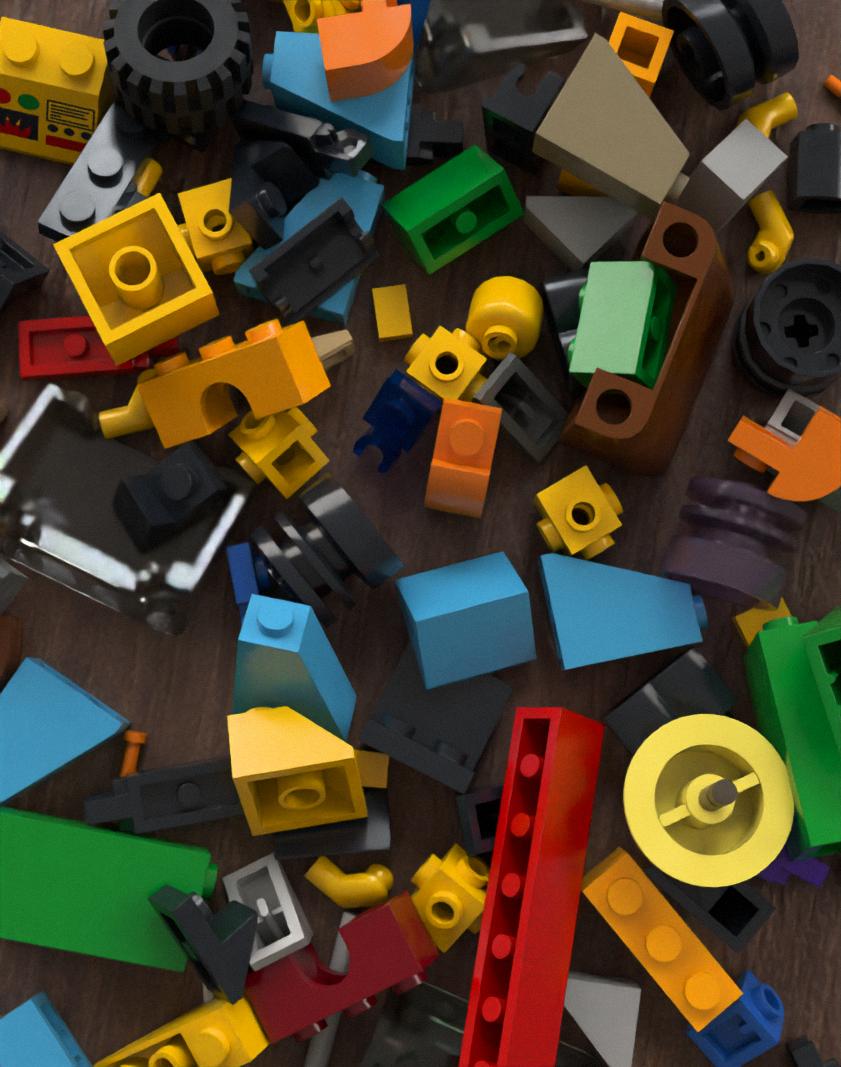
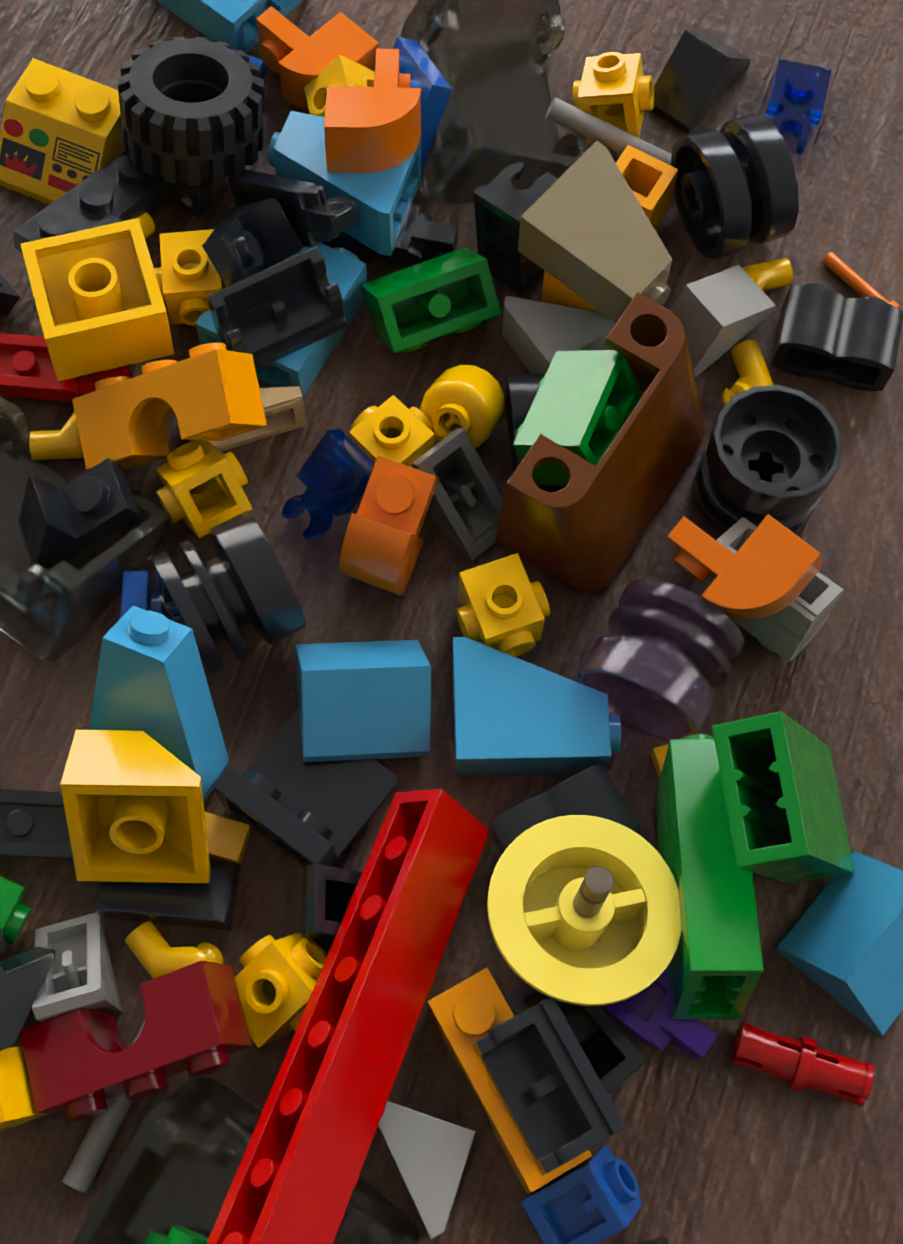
camera: 10 degrees right, 15 degrees down
(392, 313) = (351, 391): yellow piece -> none
(701, 952) = (548, 1085): none -> black hinge

